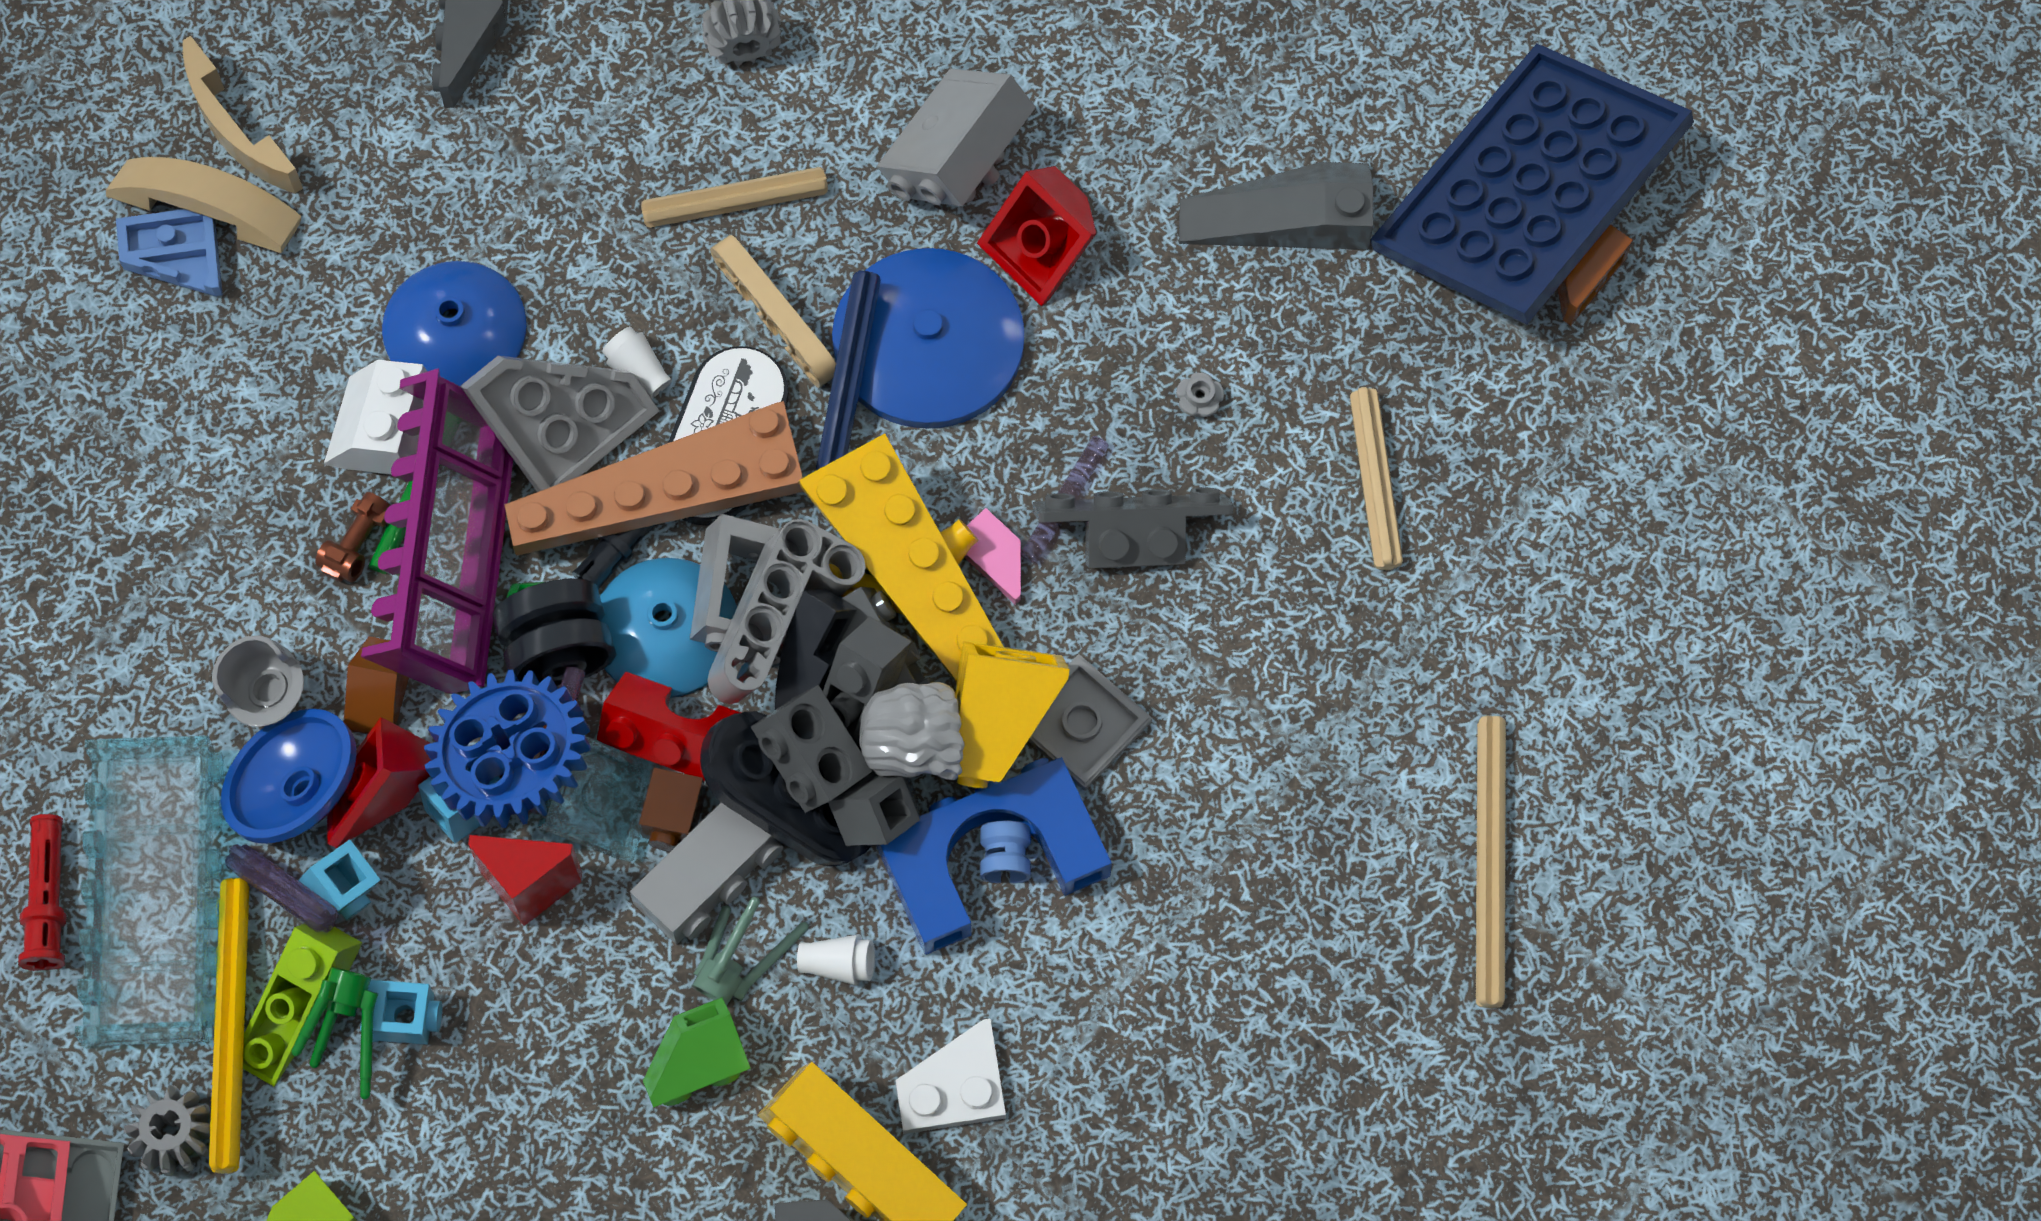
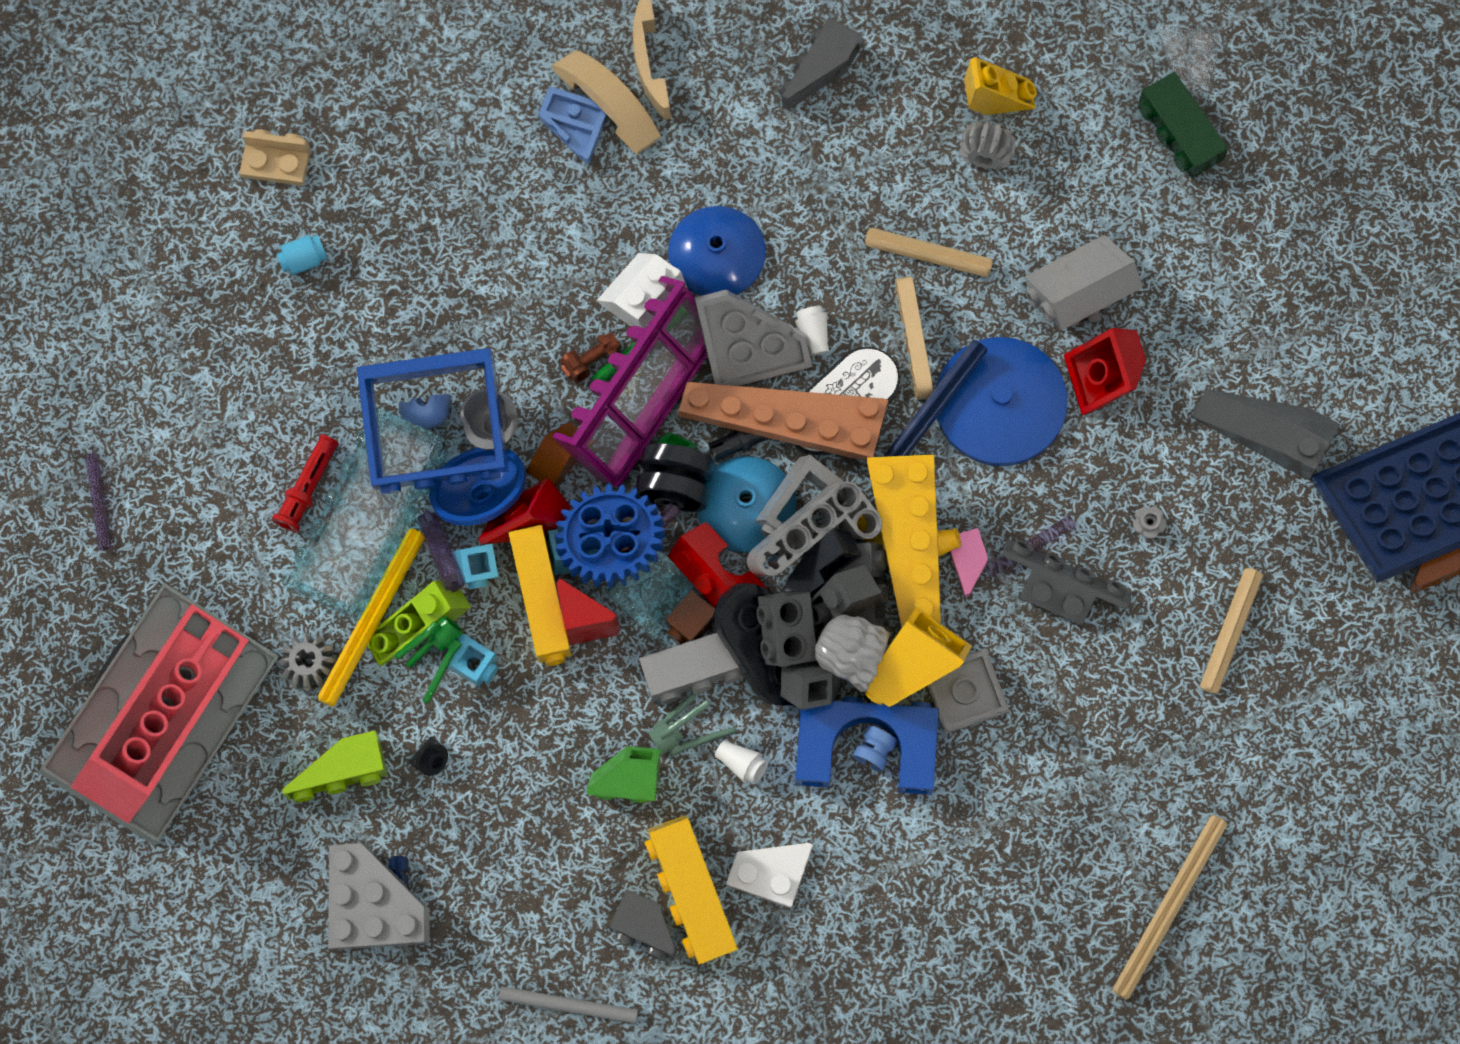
camera: 35 degrees right, 5 degrees up
(135, 651) = (426, 367): none -> blue window
(169, 718) = (429, 414): none -> medium blue hair
(409, 1172) = (430, 758): none -> black plate
(450, 875) = (540, 595): none -> yellow slope

